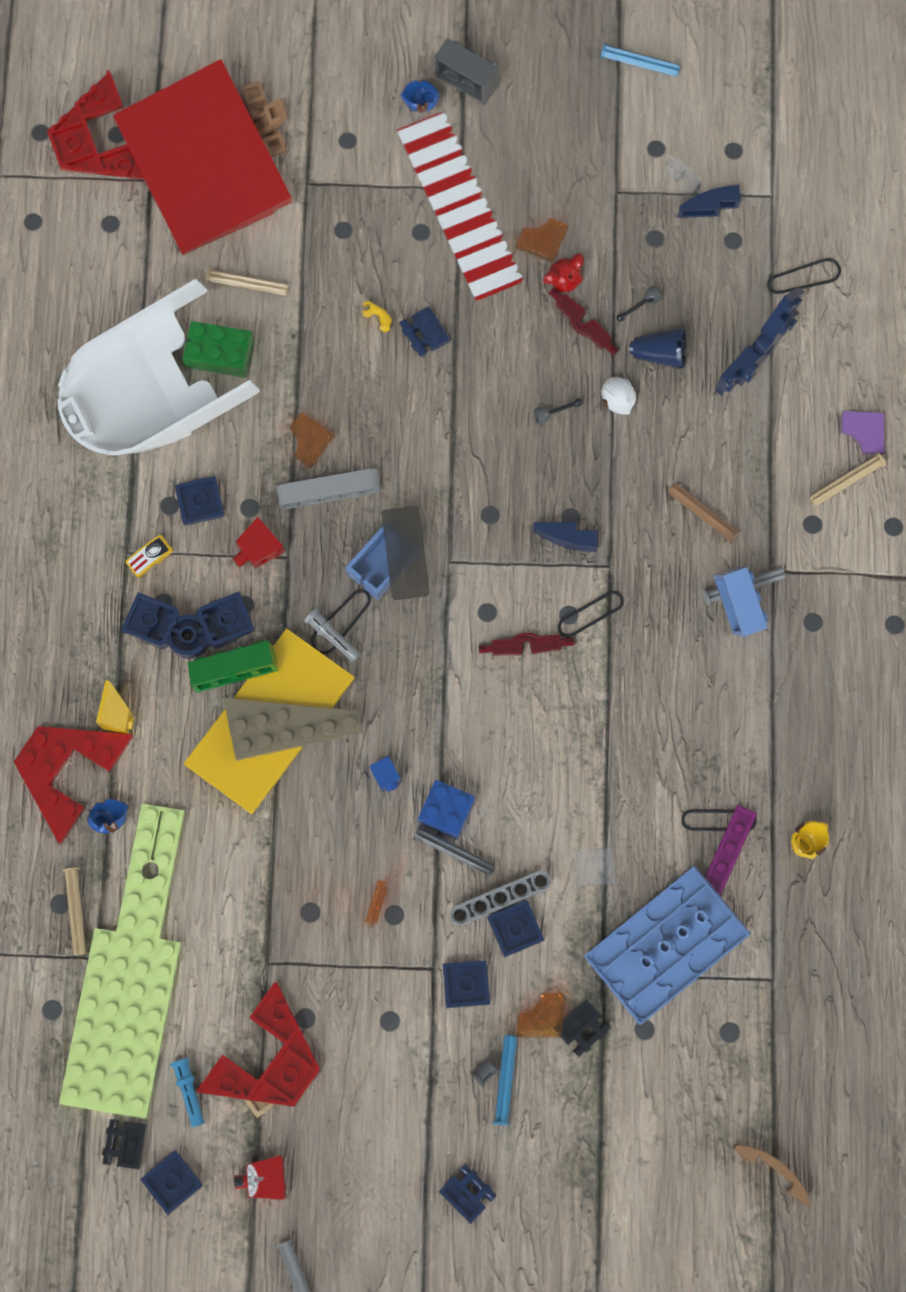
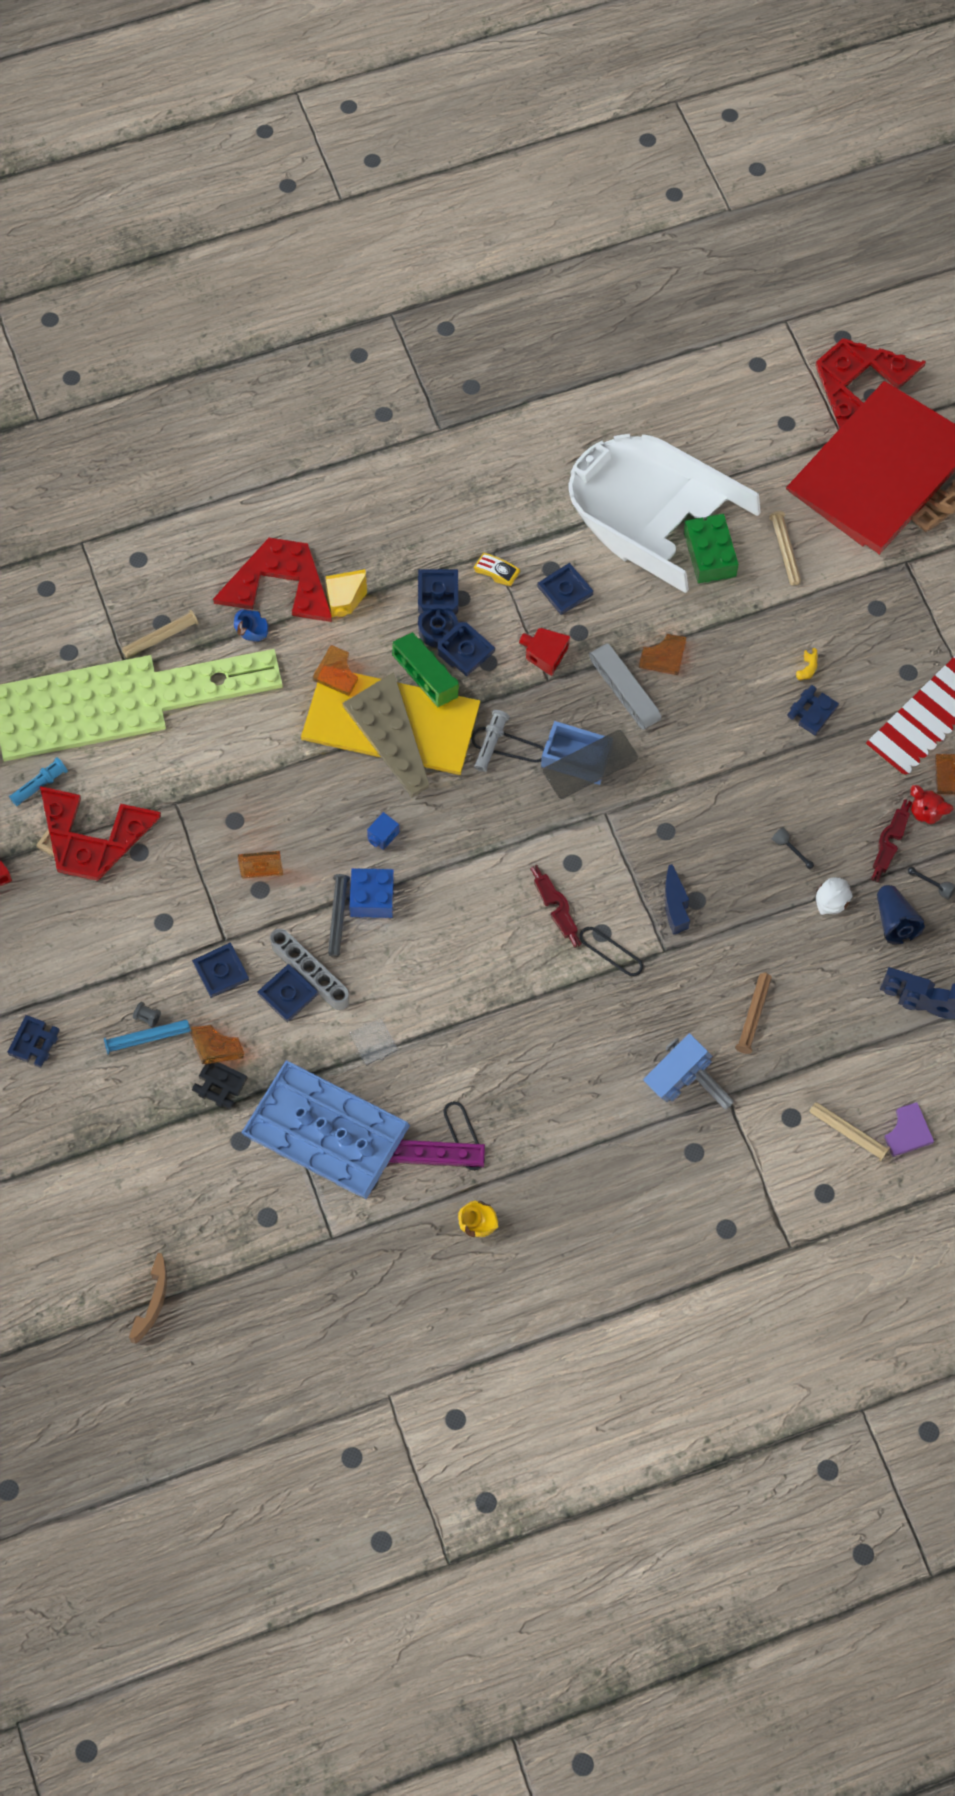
camera: 65 degrees right, 10 degrees down
(196, 754) = (334, 671): none -> clear orange tile

